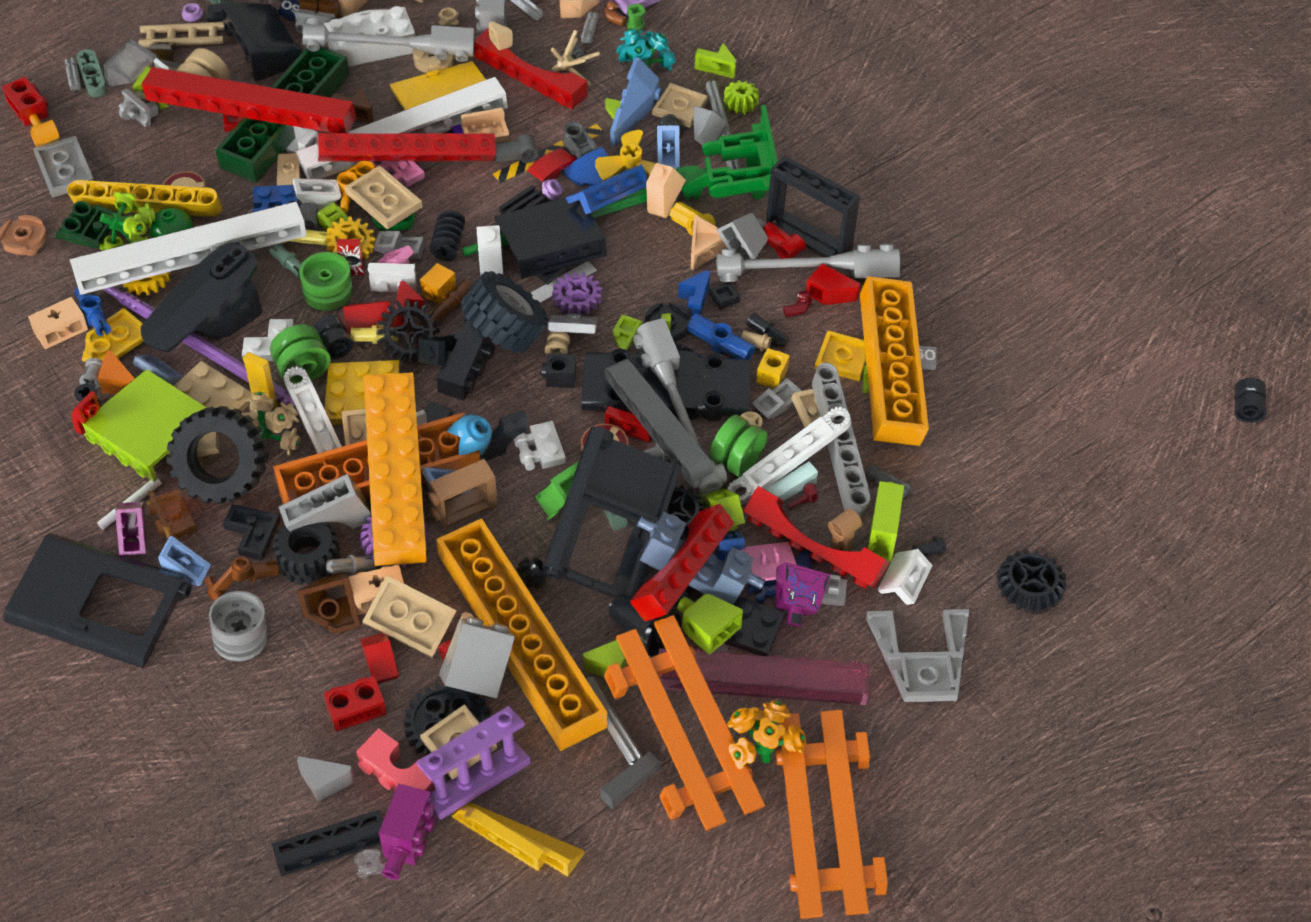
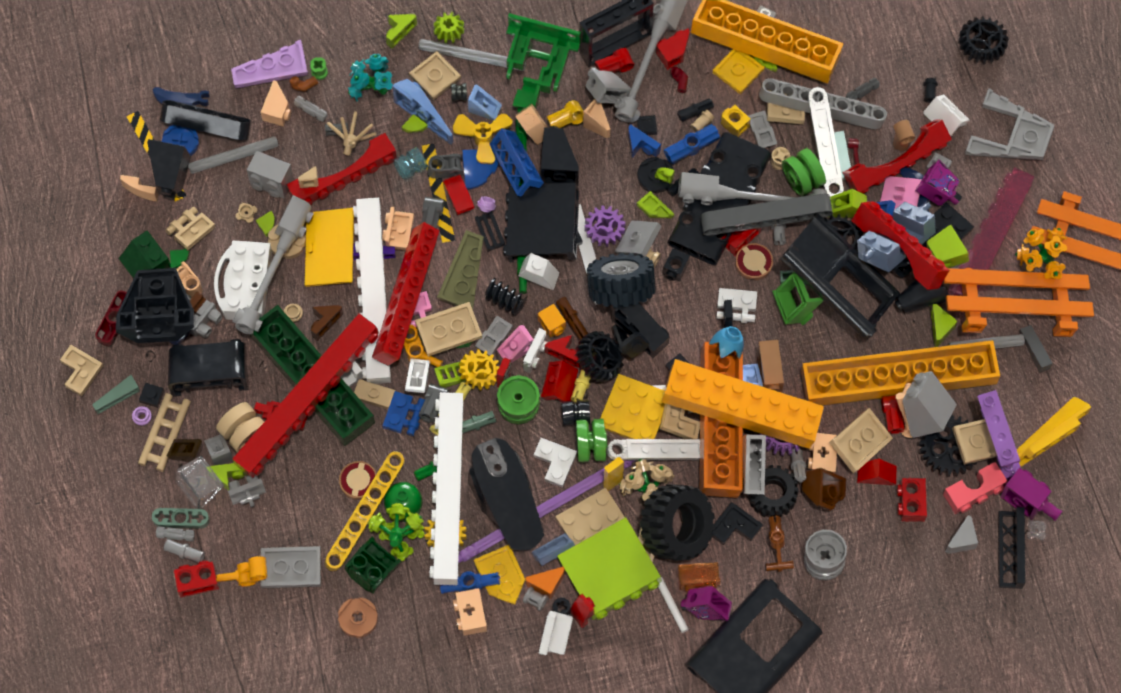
camera: 65 degrees left, 15 degrees up
(51, 396) = (555, 633): none -> white panel
(55, 84) = (184, 551): none -> light grey pin
(183, 561) = (748, 580): light blue slope -> none
(353, 82) = (294, 312): none -> tan plate
(461, 195) = (462, 275): none -> olive wing
(532, 572) = (851, 348): black gear -> none
(562, 111) = (410, 163): none -> clear light blue wheel
(633, 221) = (558, 160): none -> black slope
(707, 125) = (471, 64): light grey slope -> none
(886, 519) = (905, 105): lime window -> none

